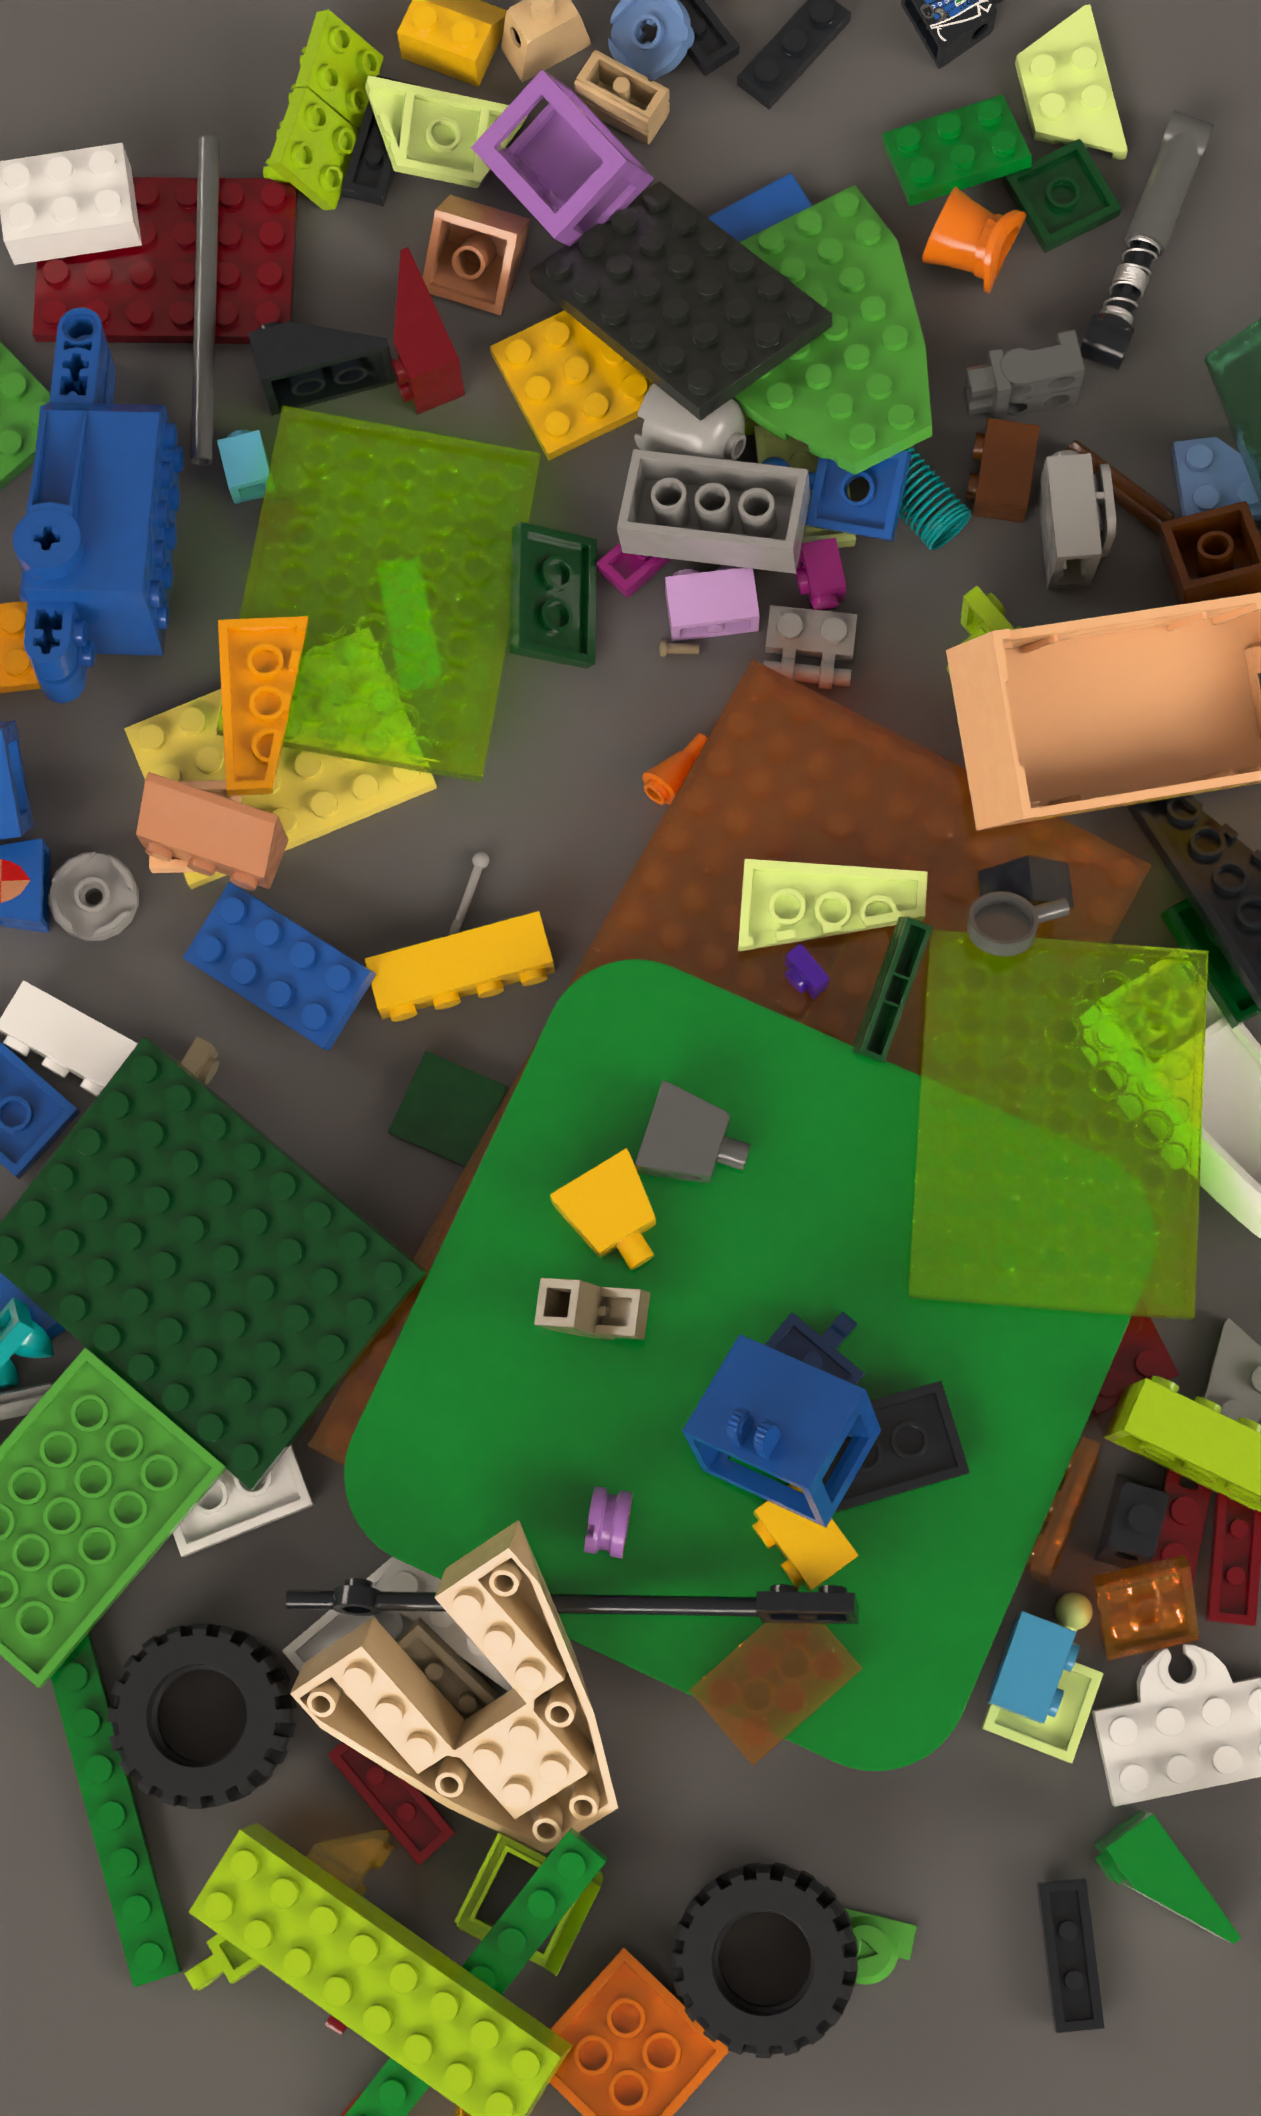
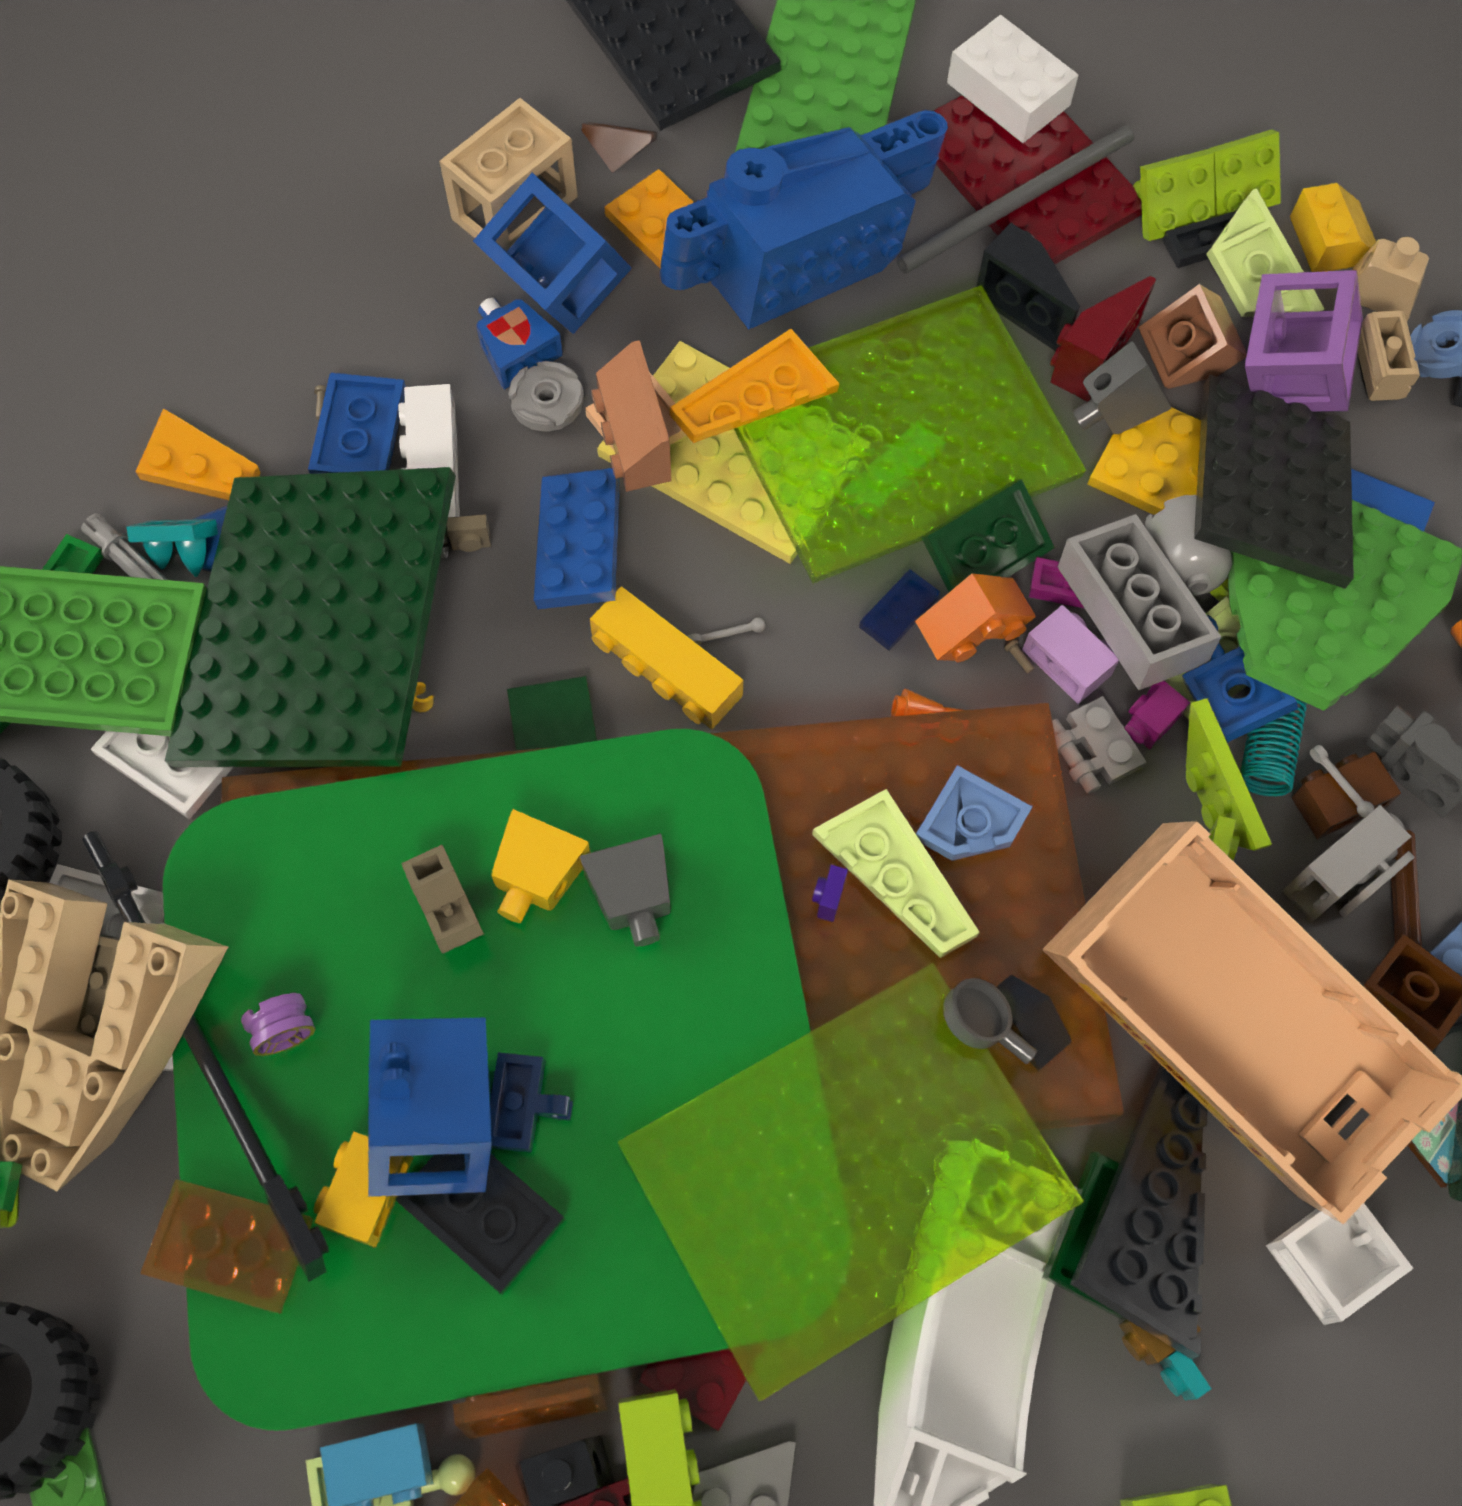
camera: 50 degrees right, 10 degrees down
(244, 464) = (922, 289): medium azure brick -> none
(495, 366) = (1122, 393): none -> dark grey torso
(559, 722) = (899, 609): none -> clear blue plate
(620, 655) = (974, 612): none -> orange brick
(819, 803) = (972, 817): none -> medium blue plate
(892, 988) = (864, 966): dark green piece -> none
(927, 570) = (1217, 779): none -> lime wing
(1033, 467) = (1320, 755): none -> light grey hinge

